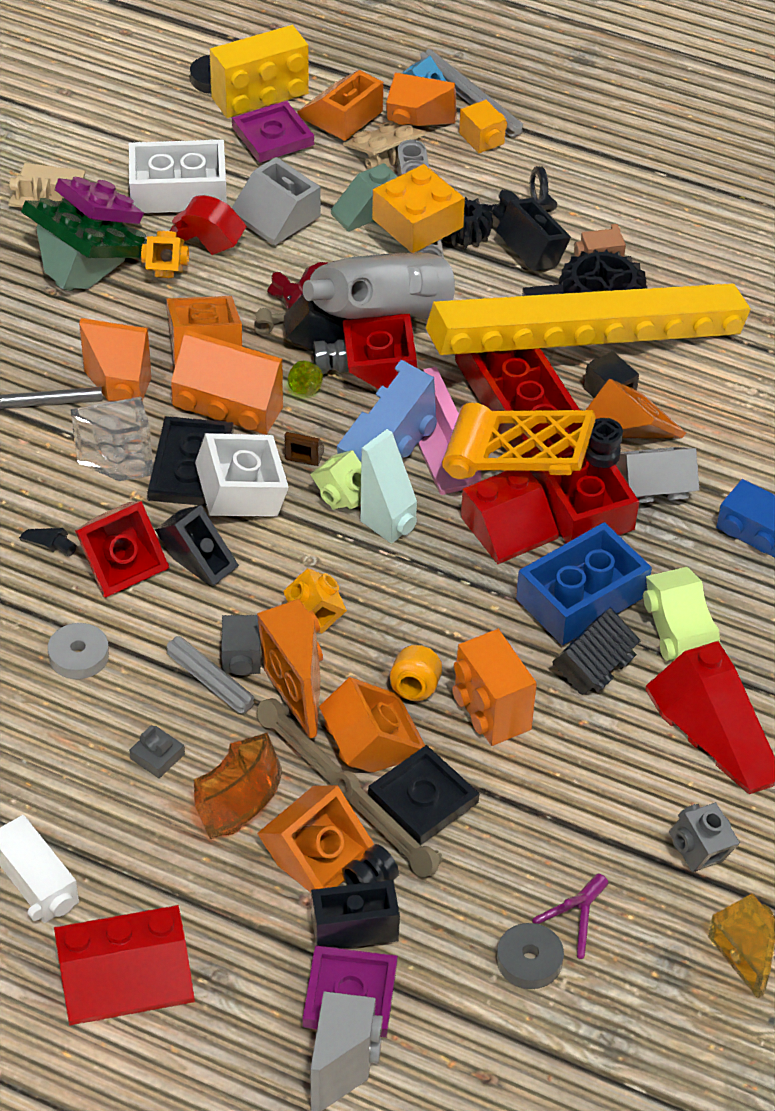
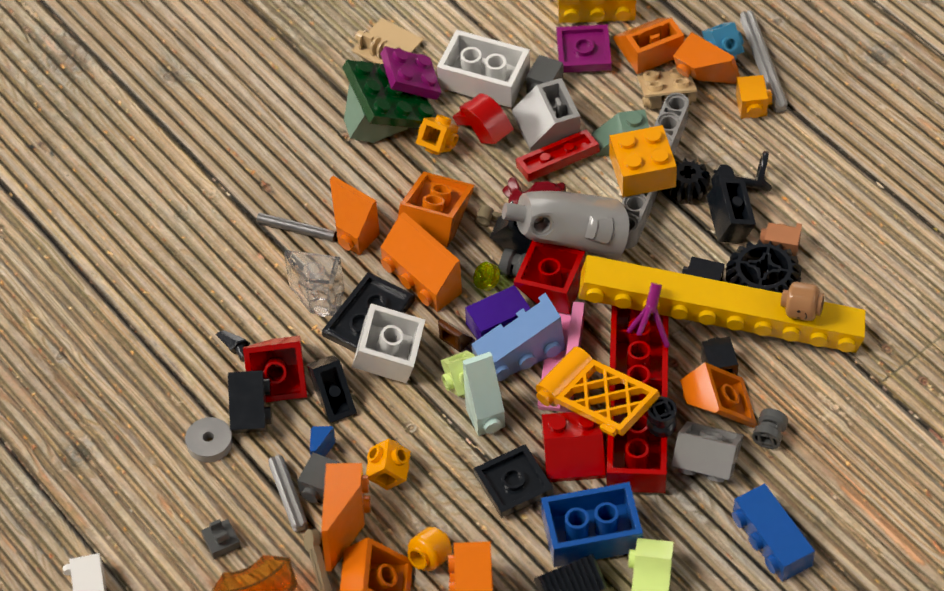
camera: 30 degrees right, 5 degrees up
(110, 588) = (248, 401): none -> black brick
(217, 603) = (322, 439): none -> blue slope
(245, 160) = (543, 71): none -> dark grey brick
(309, 239) = (557, 155): none -> red plate
(339, 409) = (494, 310): none -> dark purple brick
(464, 572) = (513, 481): none -> black plate
(531, 340) = (651, 307): none -> magenta plant
(678, 285) = (803, 301): none -> medium nougat head
(706, 428) = (771, 425): none -> dark grey wheel

